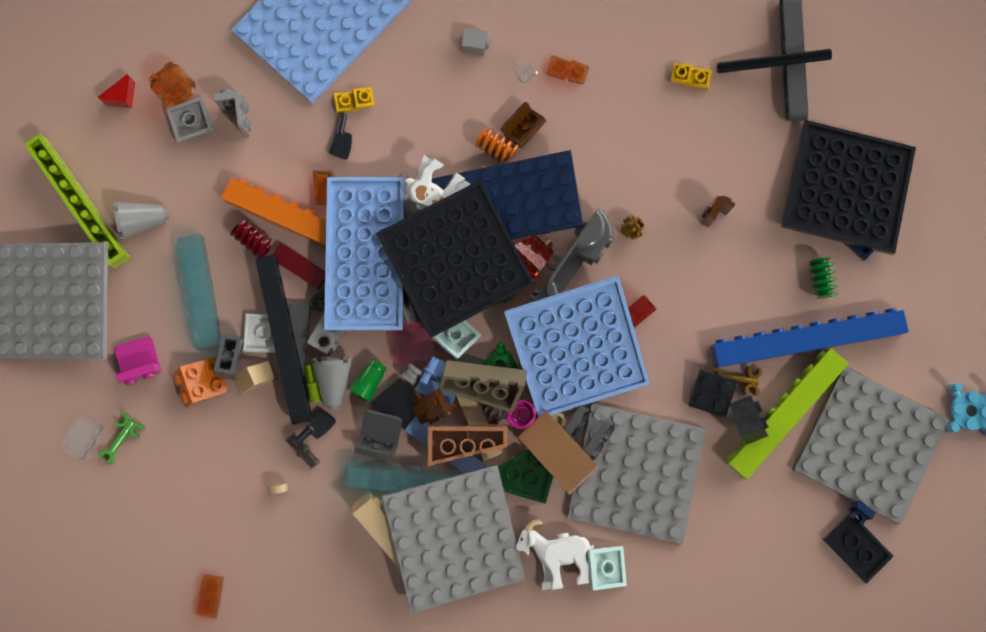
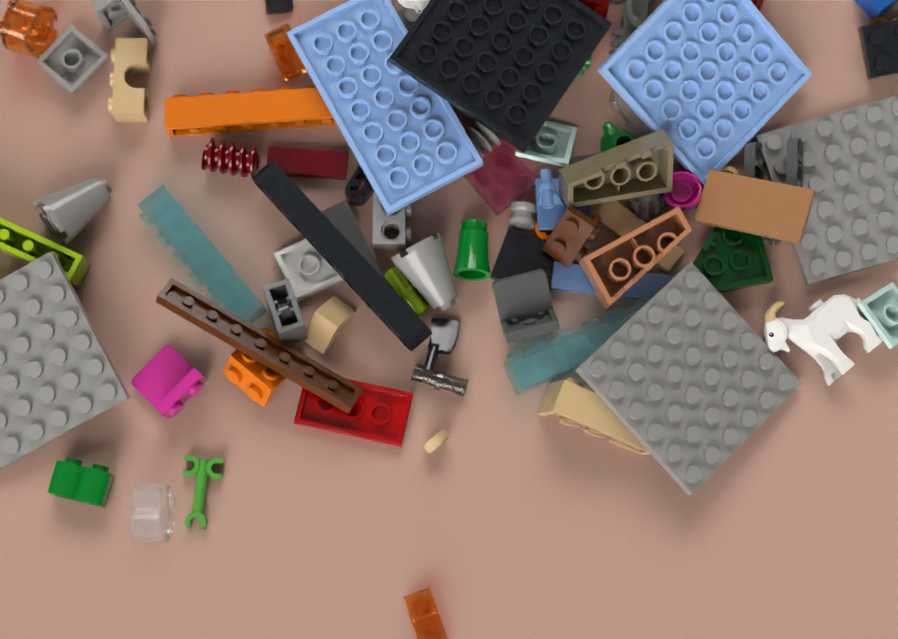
camera: 30 degrees left, 5 degrees down
(50, 395) = (81, 483): none -> green brick
(199, 370) = (259, 345): none -> reddish brown plate
(224, 138) = (129, 58): none -> tan arch
(240, 439) = (376, 416): none -> red tile

